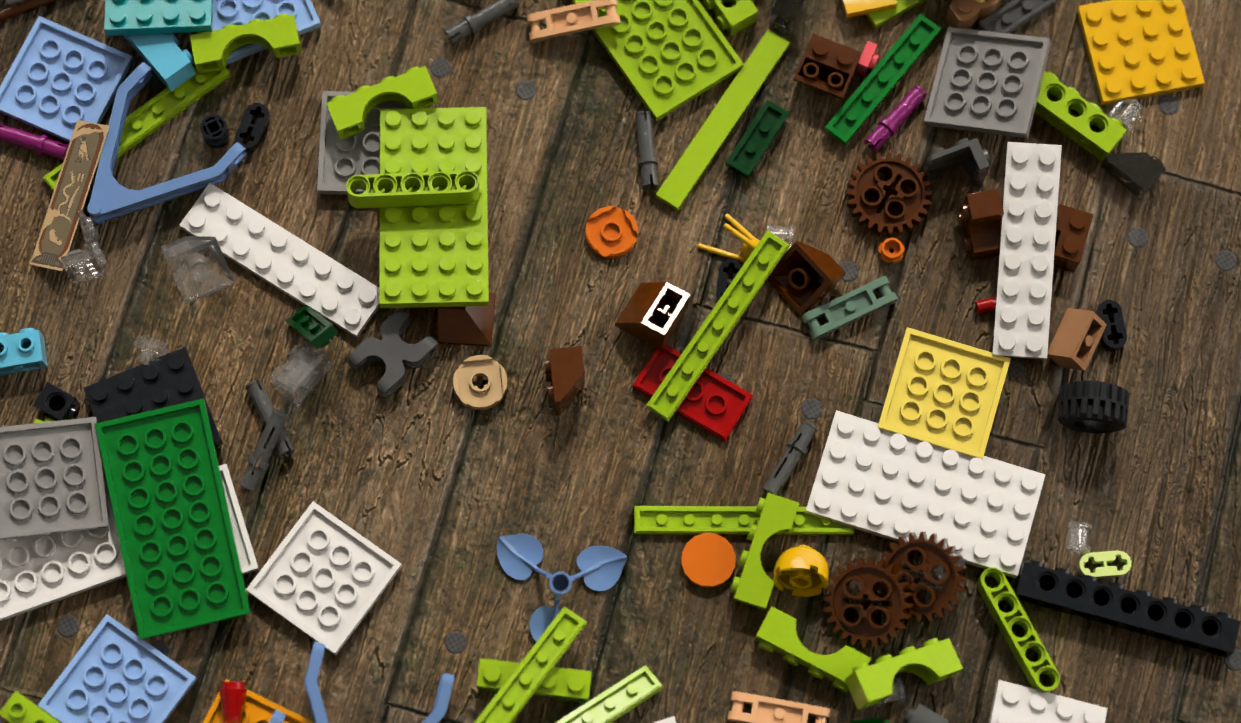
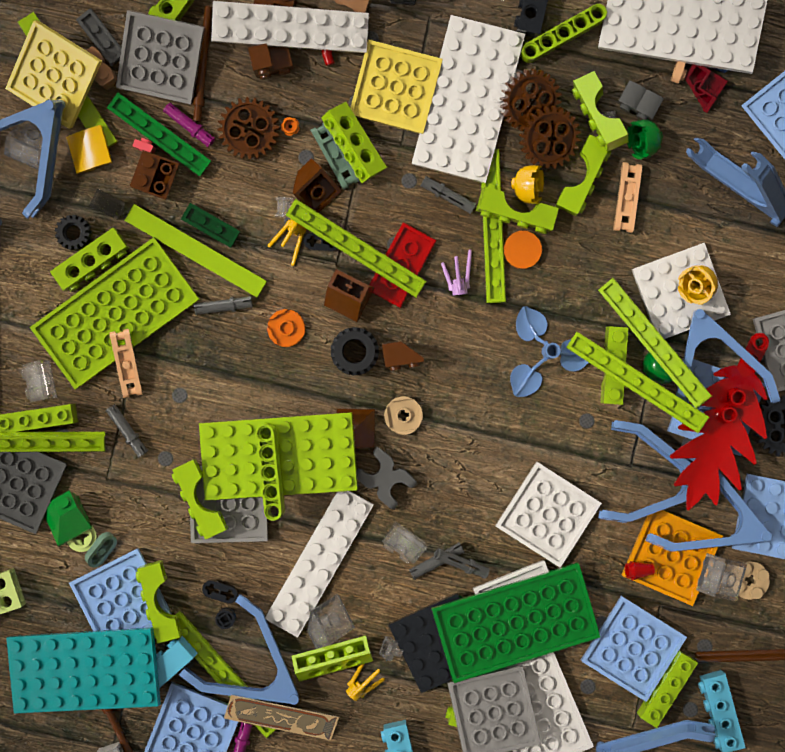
camera: 85 degrees left, 15 degrees up
(51, 395) = (435, 718): black brick -> none
(85, 264) = (325, 695): clear bracket -> none
(98, 301) = (358, 689): none -> yellow plant
(145, 267) = (332, 658): none -> lime brick
(312, 327) = (373, 536): dark green plate -> none
(576, 297) = (342, 339): none -> black tyre
(660, 466) = (459, 286): none -> lavender plant
(904, 318) = (347, 130): none -> lime brick
(928, 132) = (198, 100): none -> reddish brown bar
(963, 152) = (223, 64): dark grey bracket -> none

